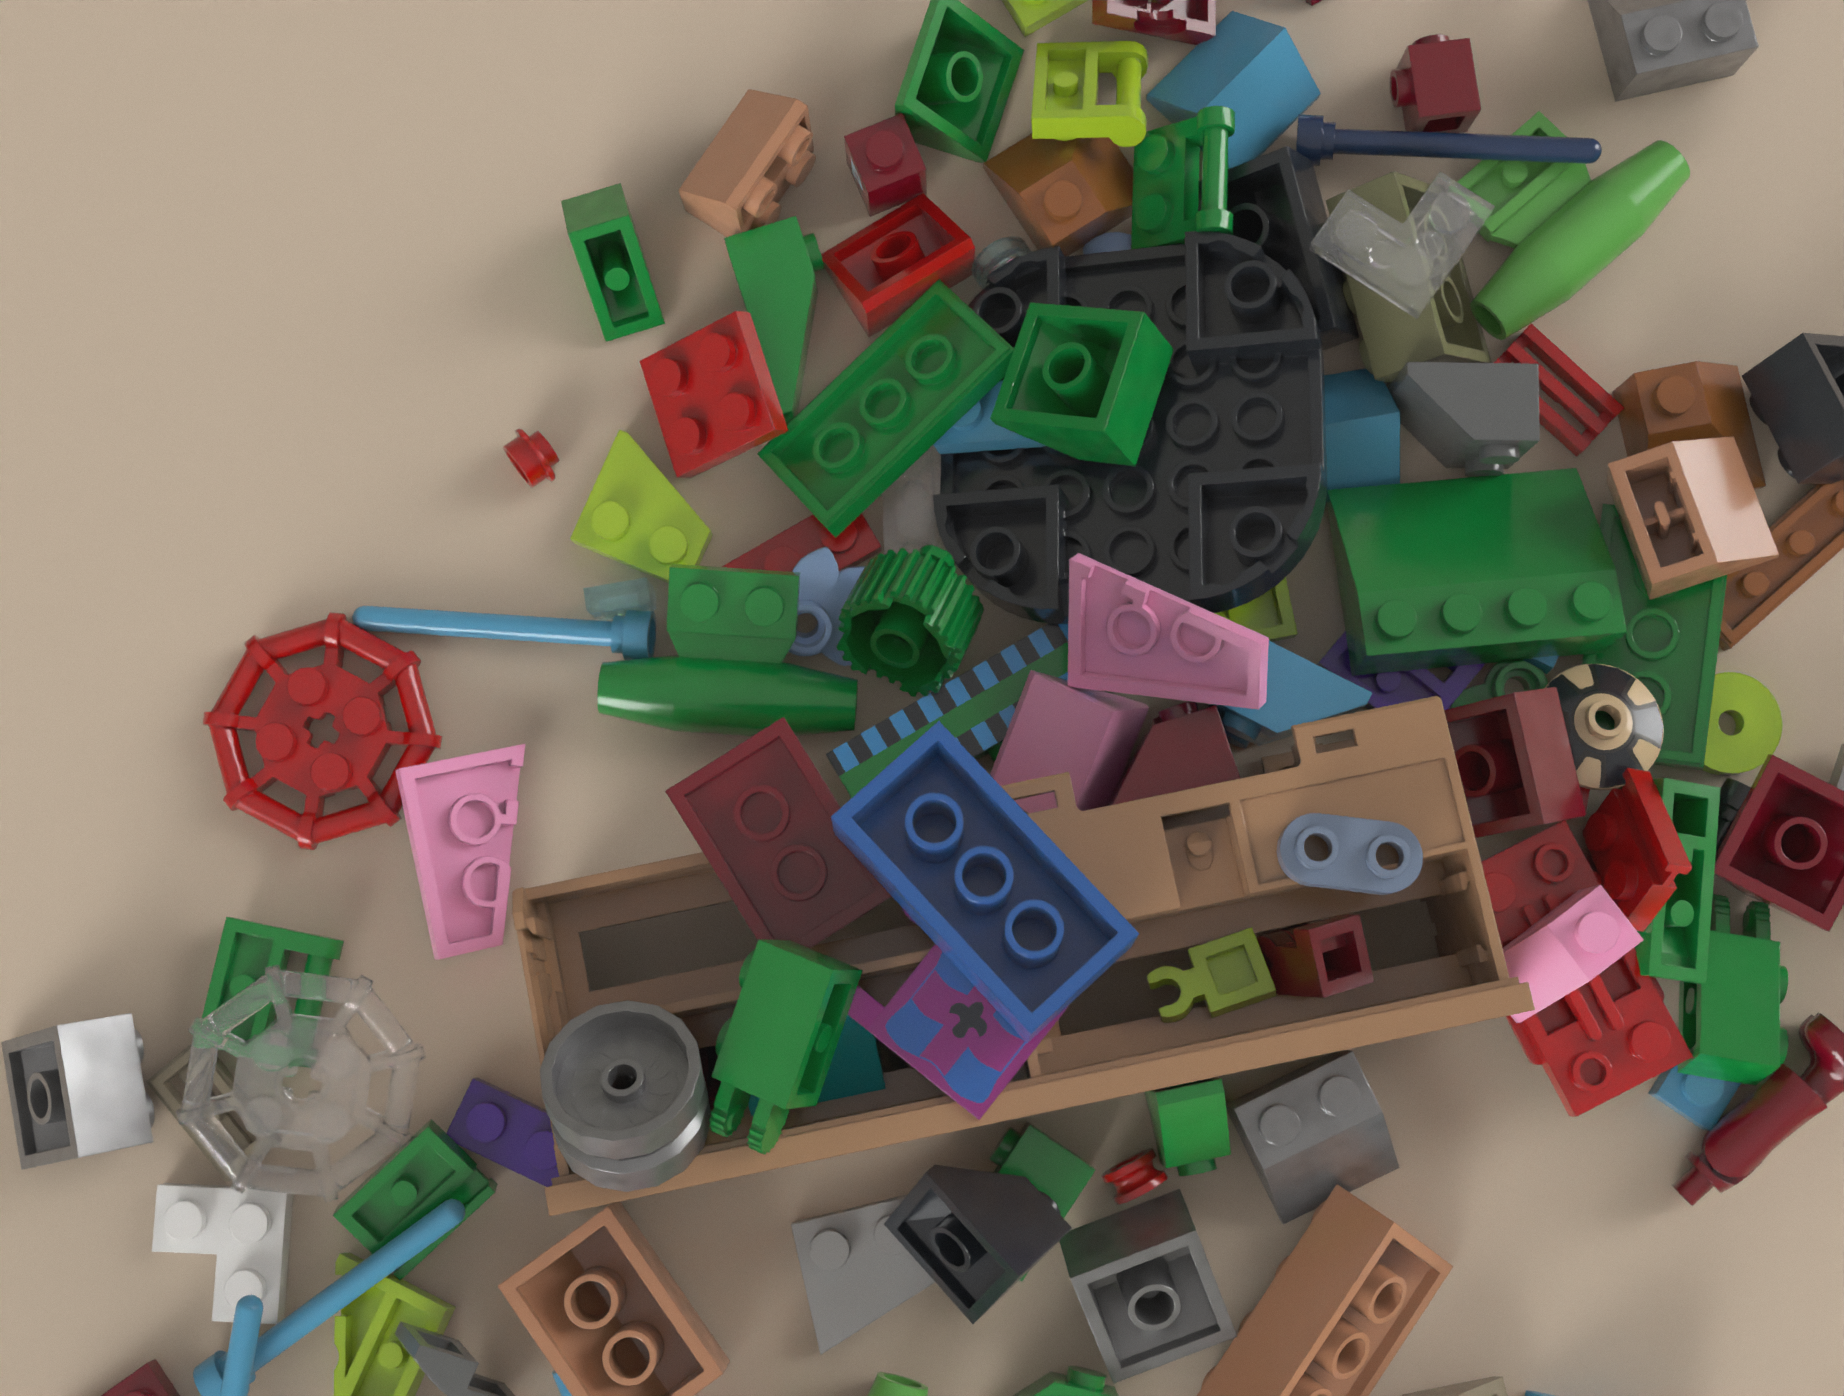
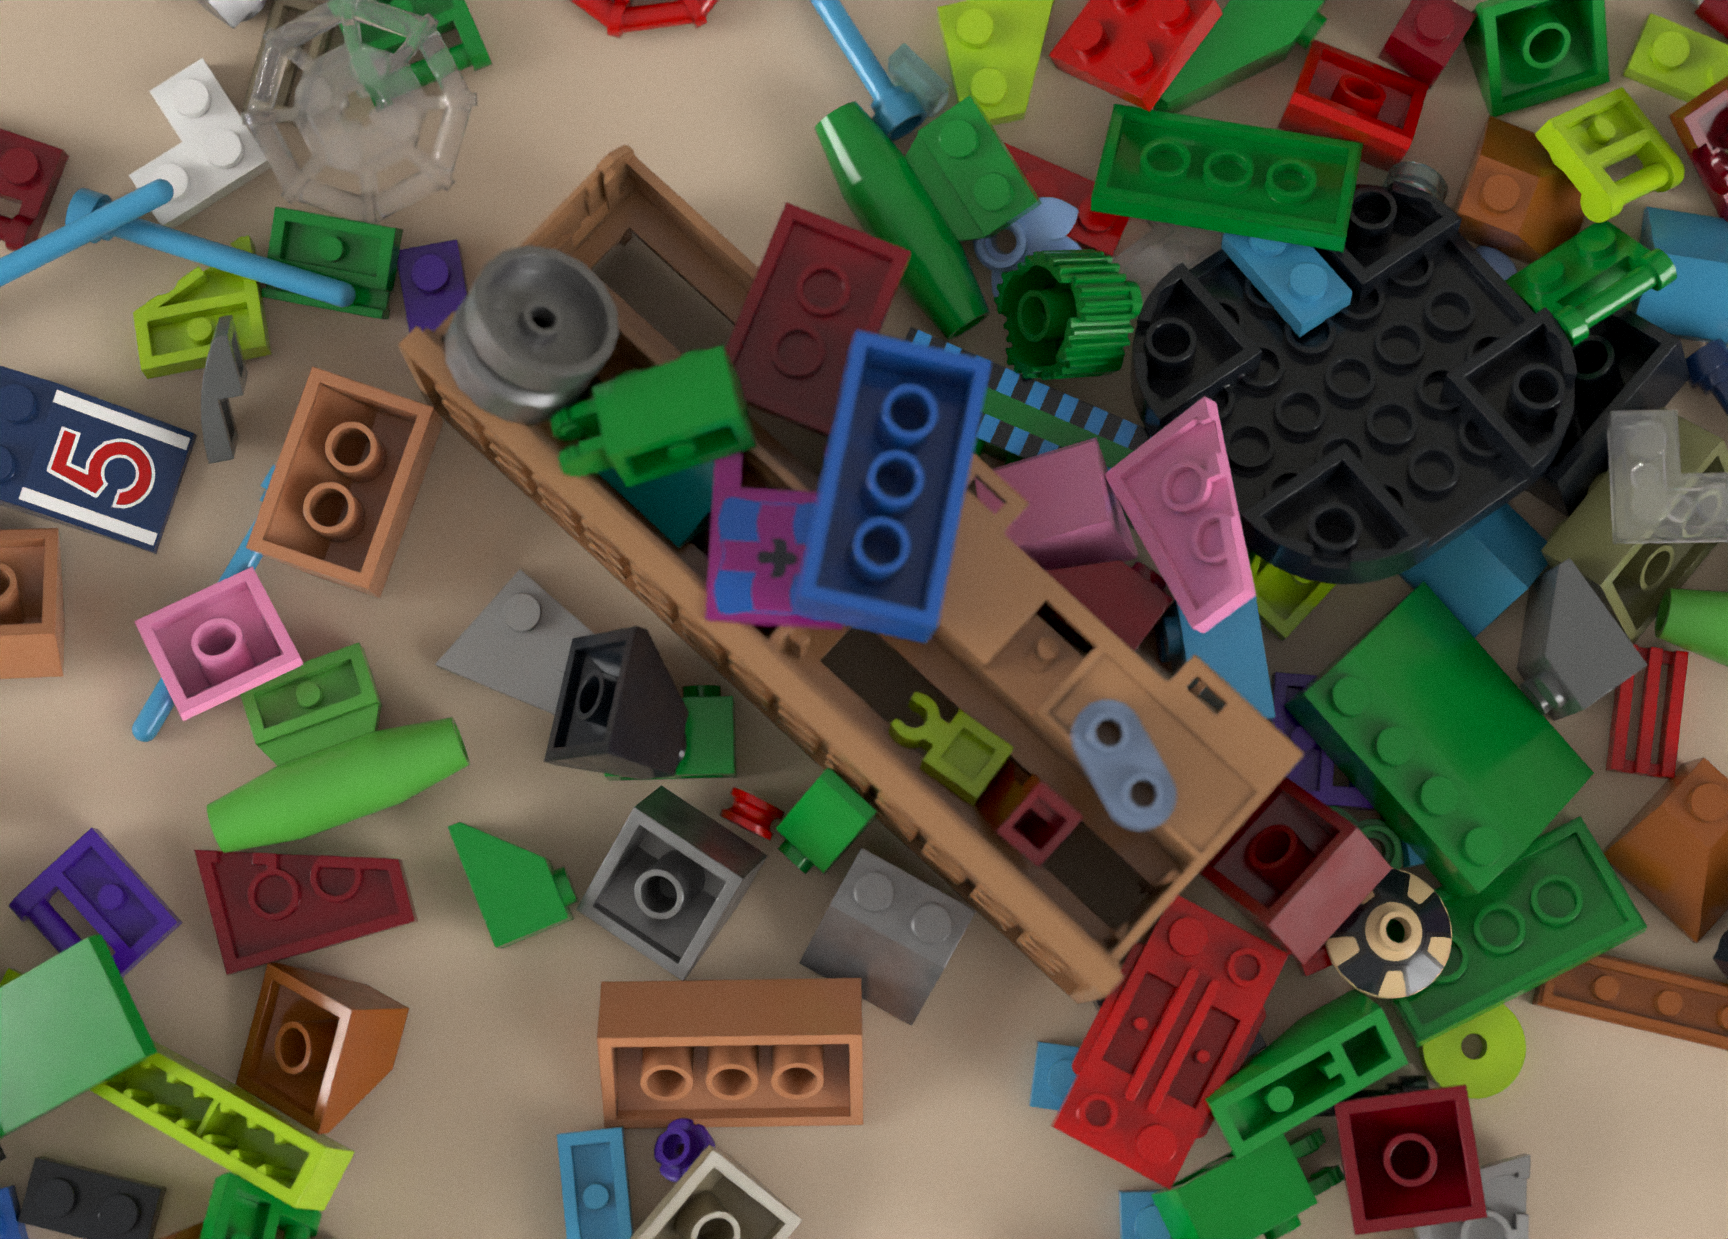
camera: 50 degrees right, 0 degrees up
(461, 842) = (636, 96): bright pink wing -> none
(1084, 381) = (1360, 311): green slope -> none
(1520, 1079) = (1052, 1075): none -> dark azure plate
(1569, 947) = (1174, 1014): bright pink slope -> none
(1636, 848) = (1304, 1025): red plate -> none
(1689, 513) = (1619, 881): nougat slope -> none

